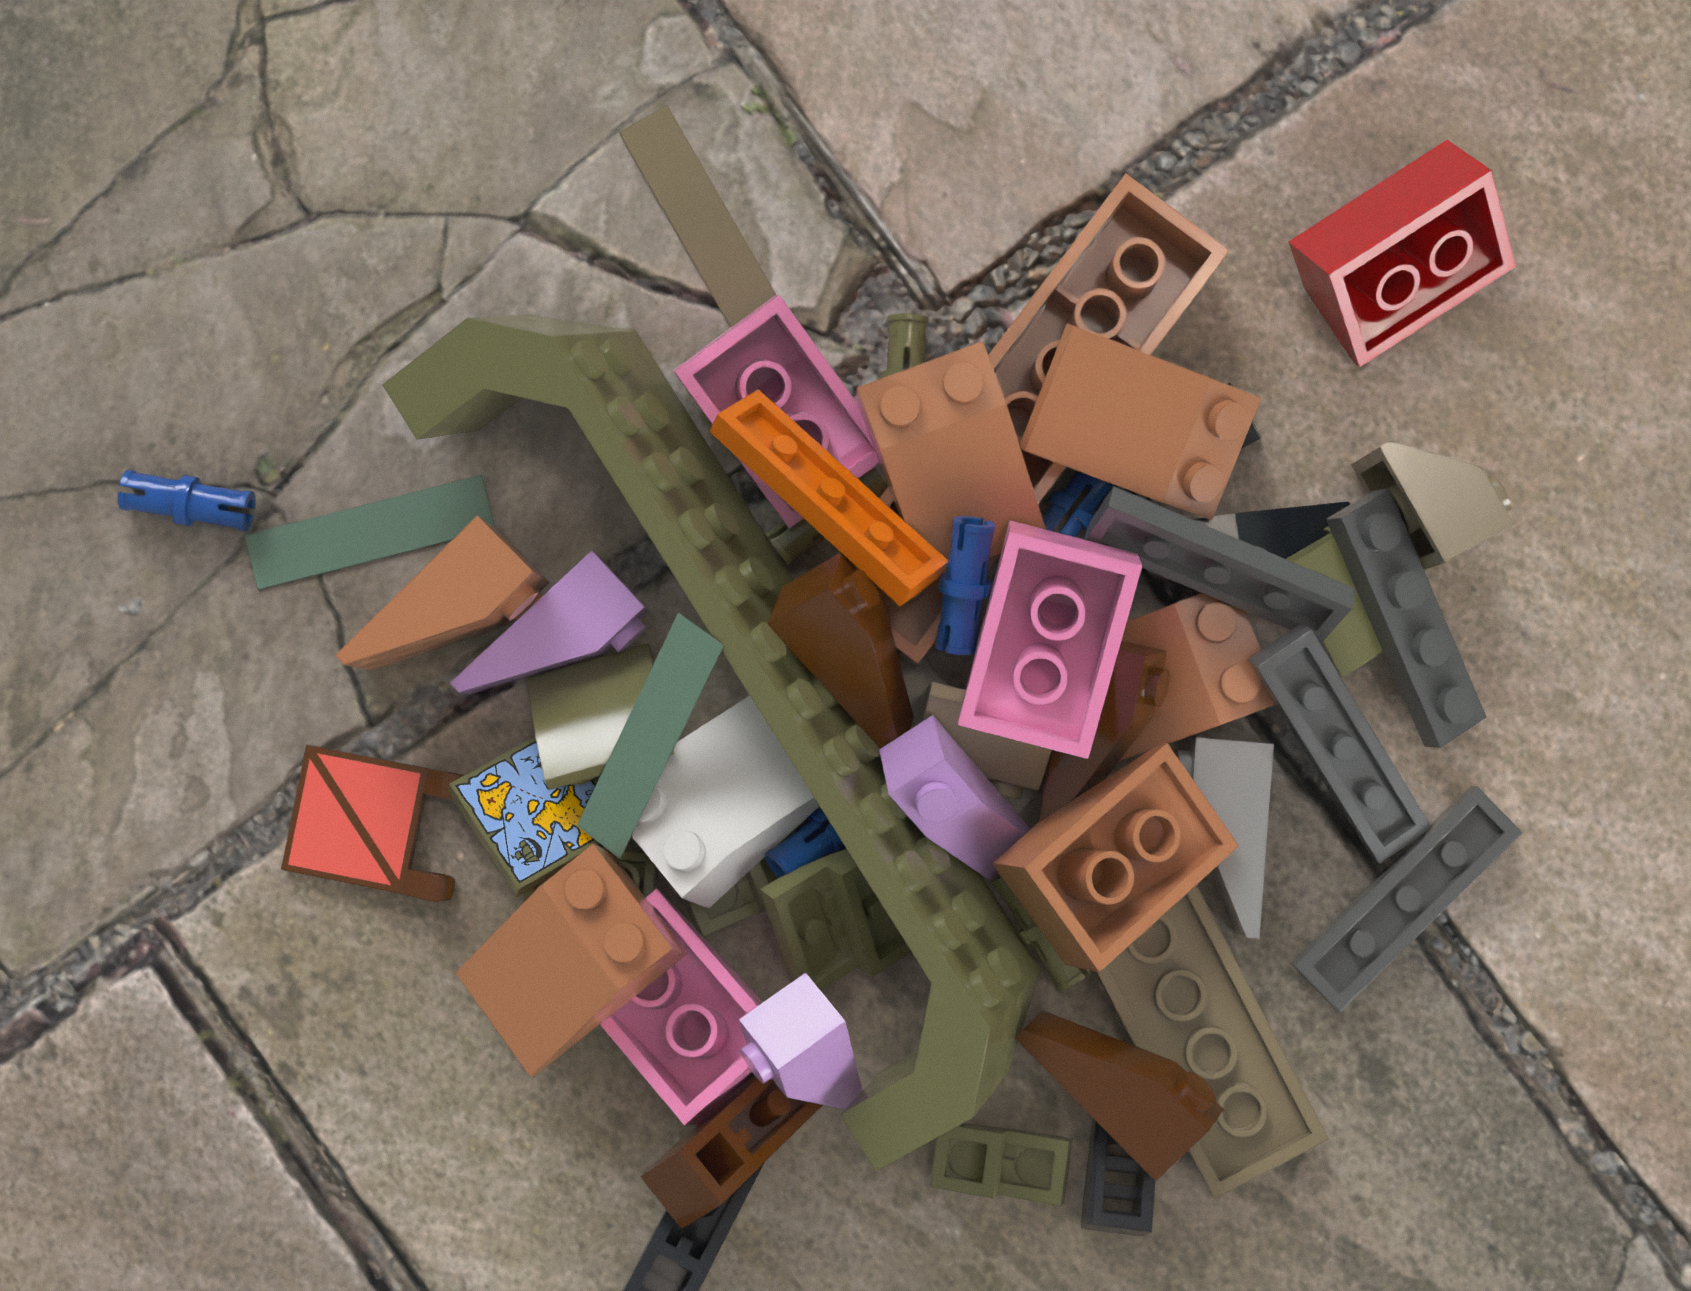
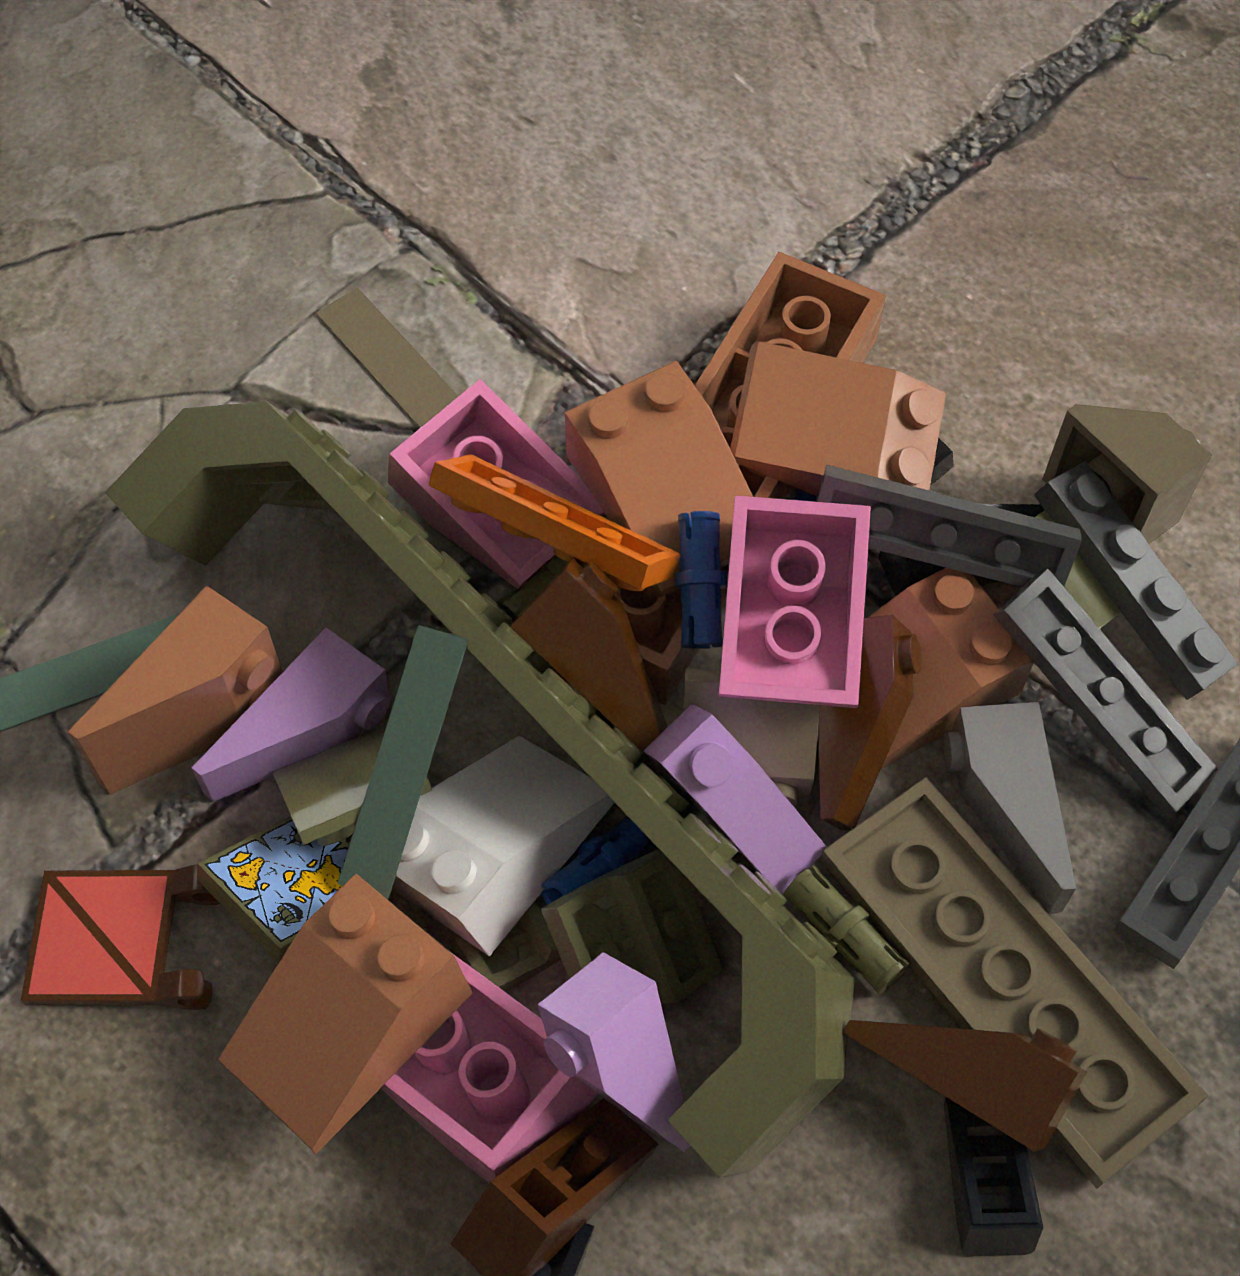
camera: 10 degrees left, 25 degrees down
(1003, 1163) = (856, 1191): olive slope -> none
(1116, 858) = (906, 823): nougat slope -> none
(1405, 251) = (1042, 299): red slope -> none

